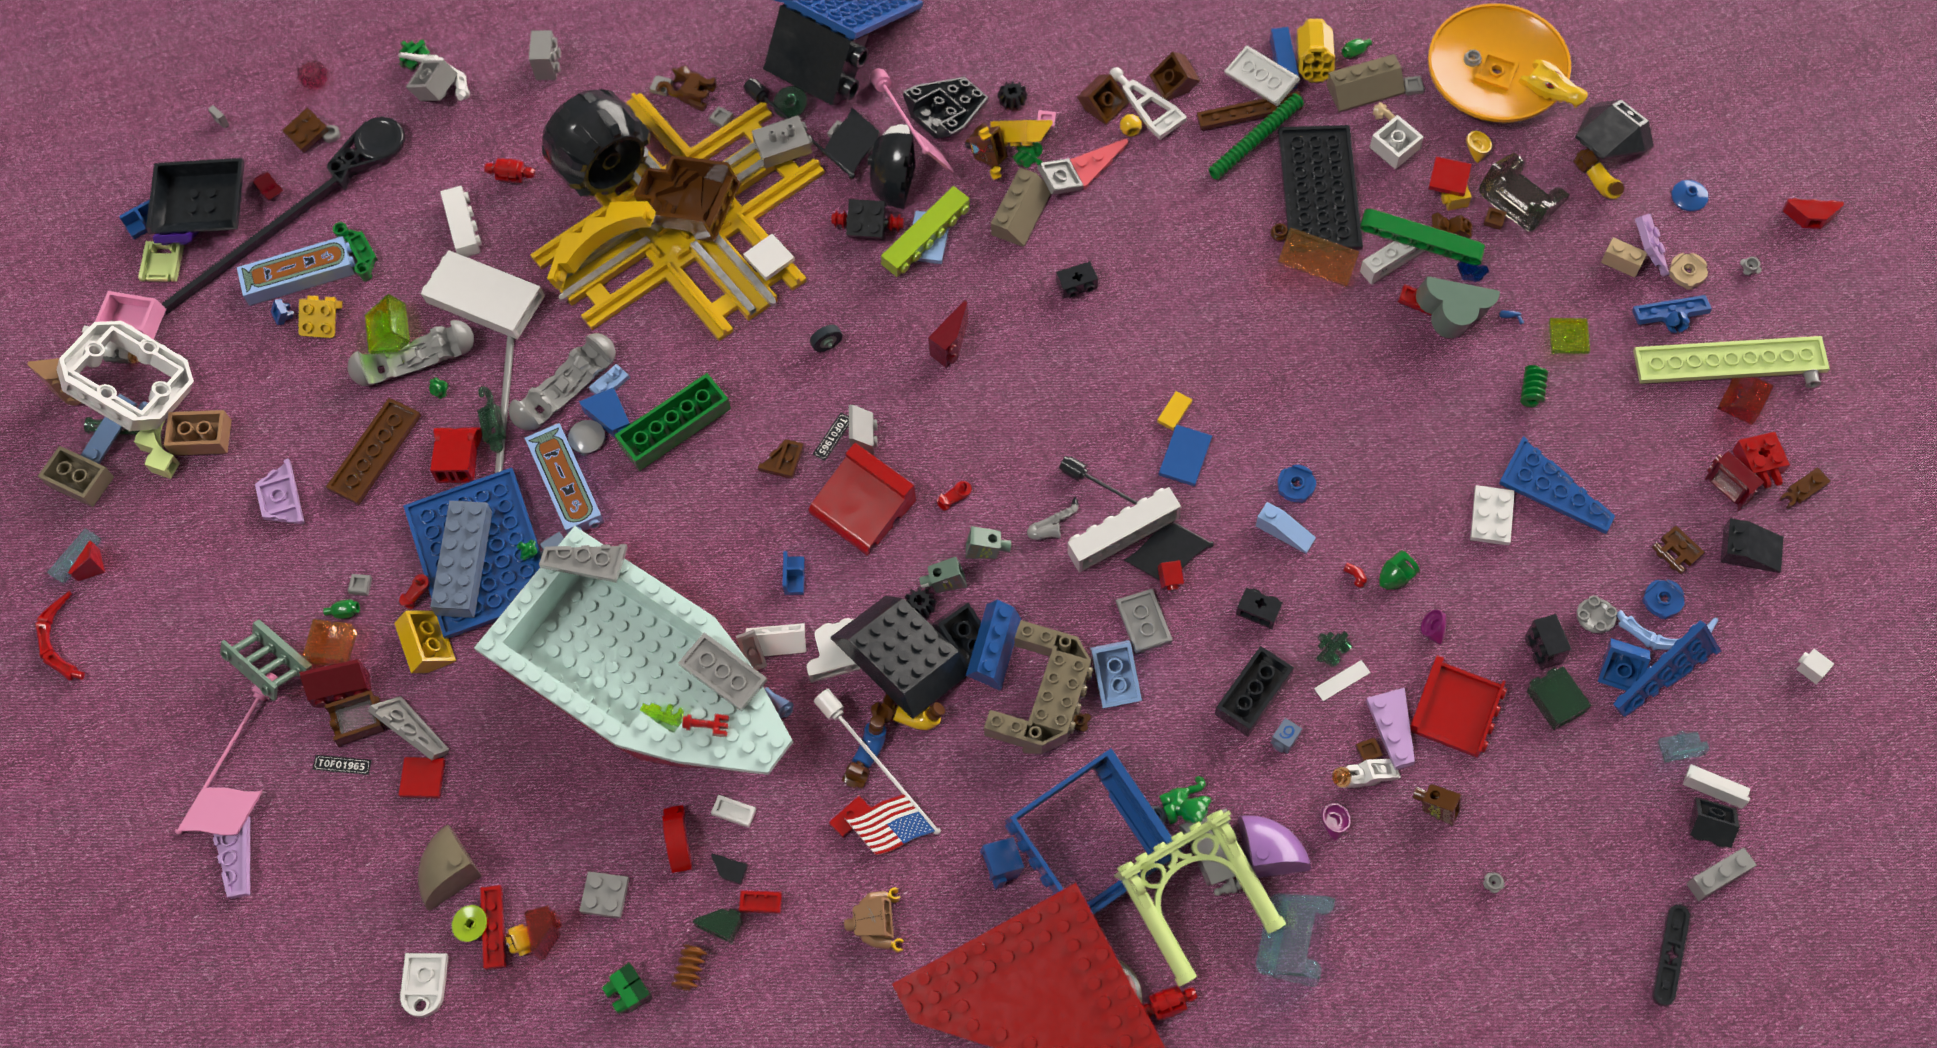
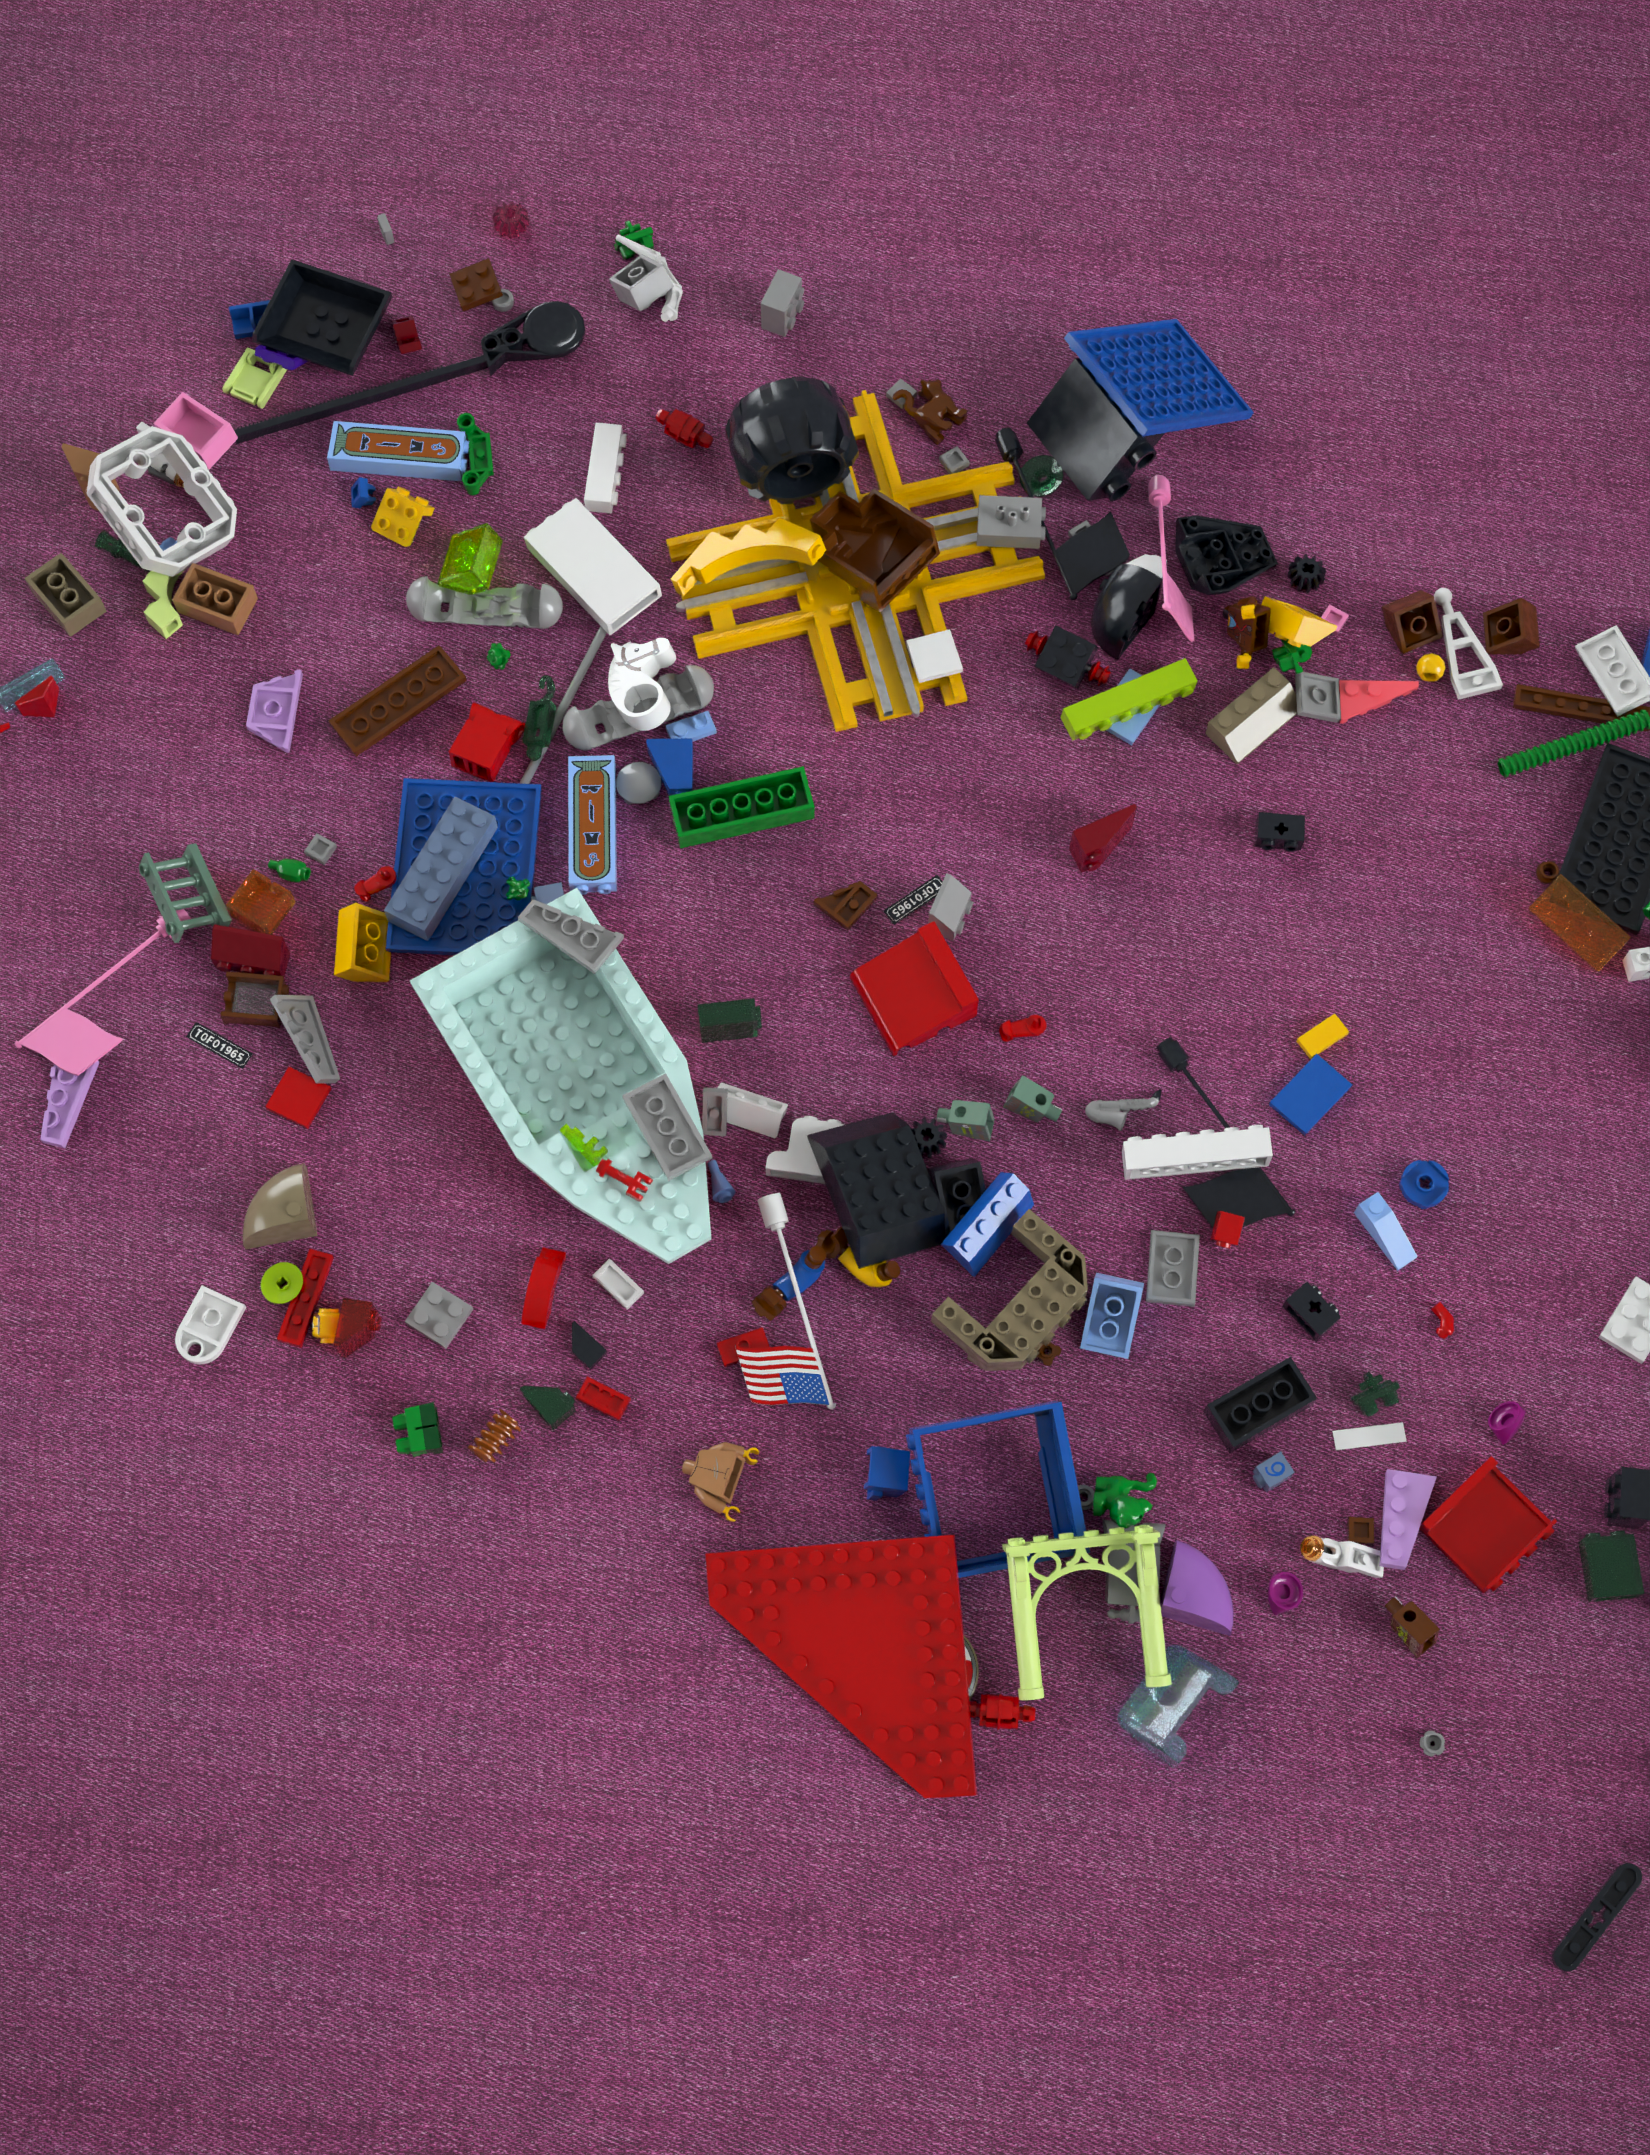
camera: 20 degrees right, 5 degrees up
(103, 437) = (113, 561): medium blue plate -> none
(549, 361) = (632, 681): none -> white animal
(732, 579) = (729, 1020): none -> clear green brick
(793, 574) = (800, 1043): blue panel -> none
(826, 338) = (957, 780): black wheel -> none
(1397, 572) = (1493, 1338): green helmet -> none

